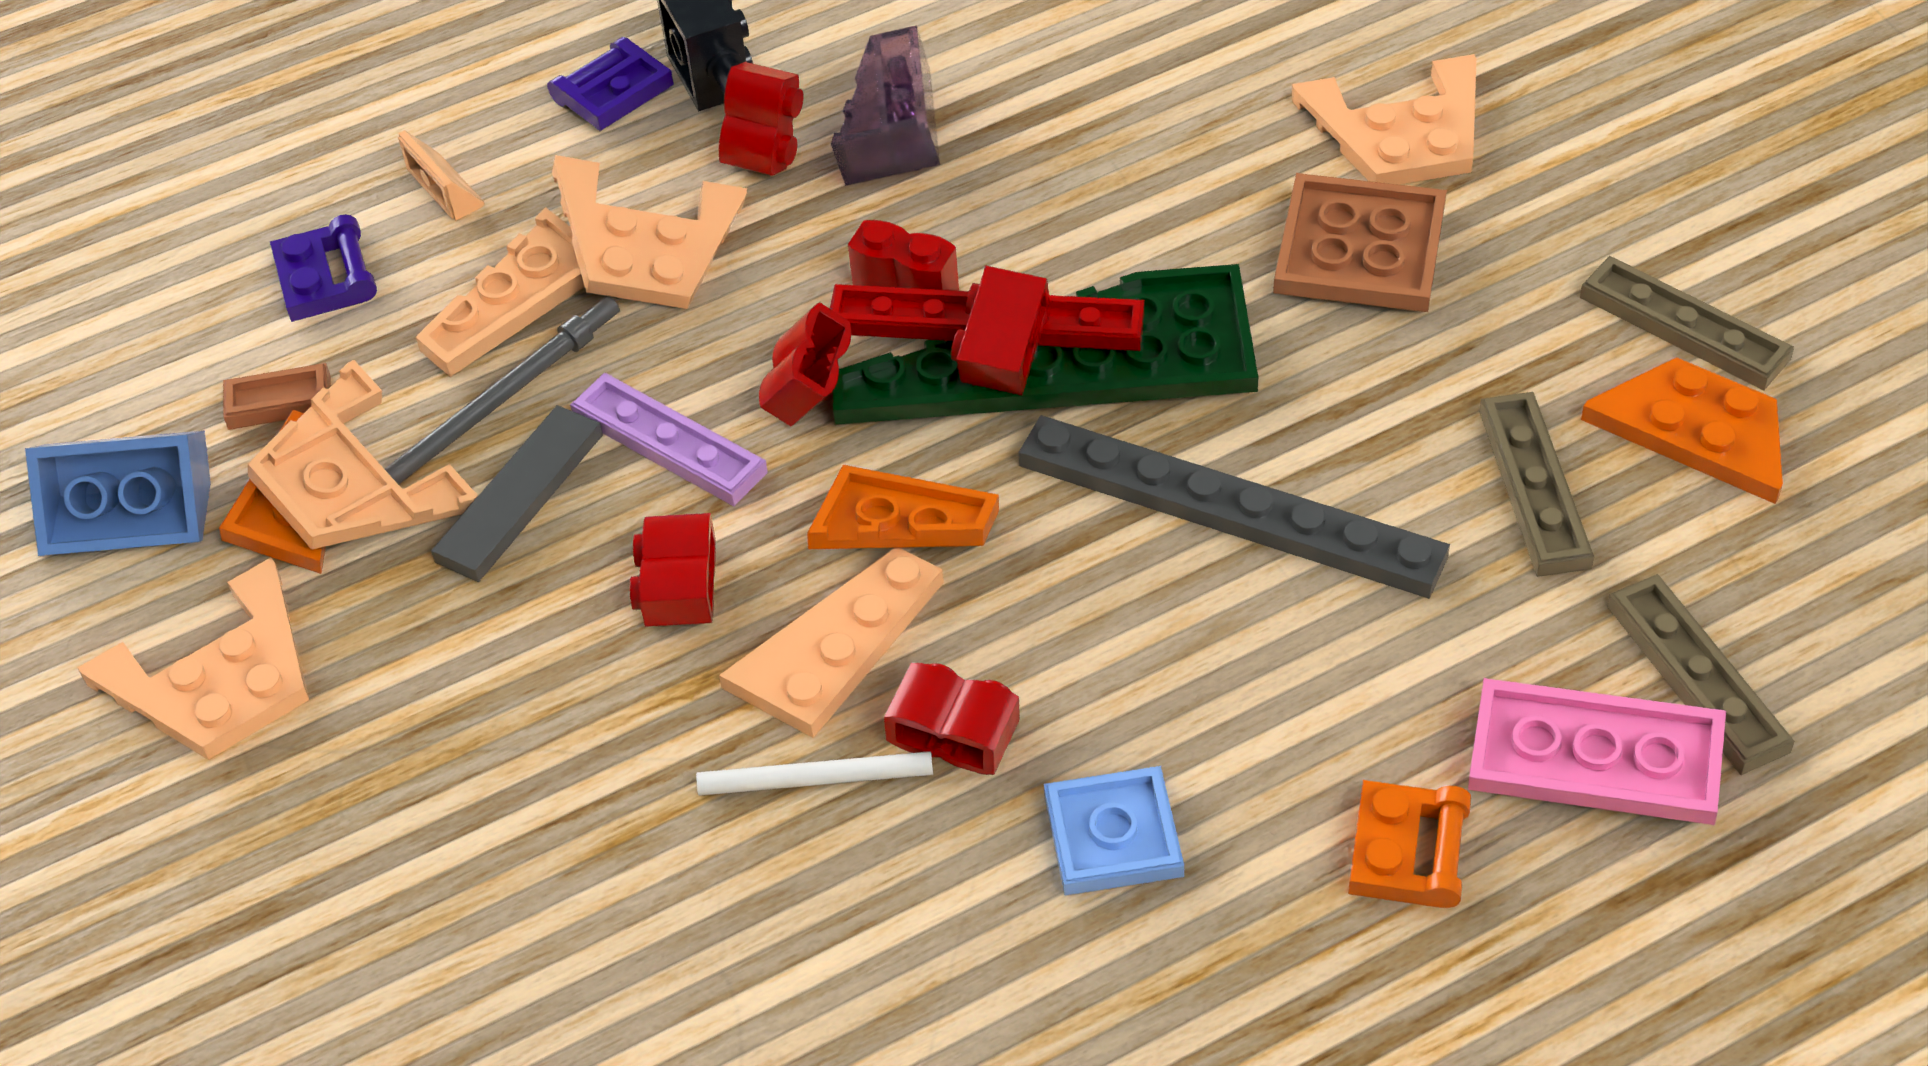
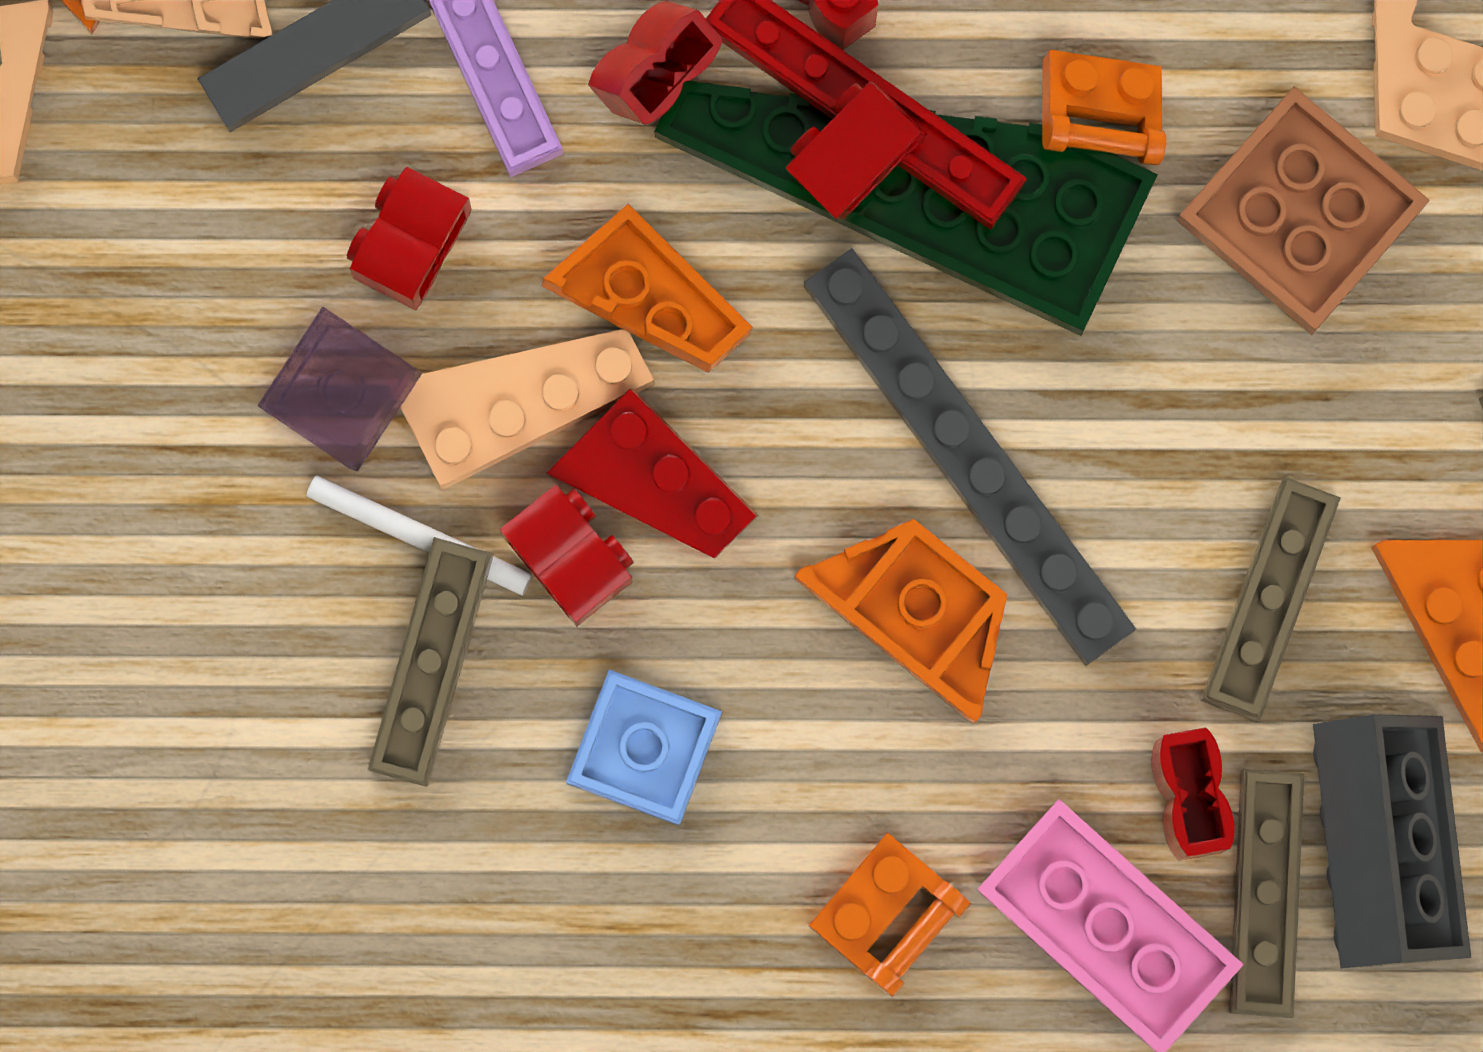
camera: 25 degrees right, 30 degrees up
(681, 697) = (340, 389): none -> tile
(886, 857) = (430, 662): none -> dark tan tile
(992, 631) = (654, 476): none -> red wing
(1166, 243) = (1102, 92): none -> orange plate
(1269, 616) = (918, 608): none -> orange wing
(1591, 621) = (1188, 777): none -> red brick
(1760, 582) = (1391, 840): none -> dark grey slope

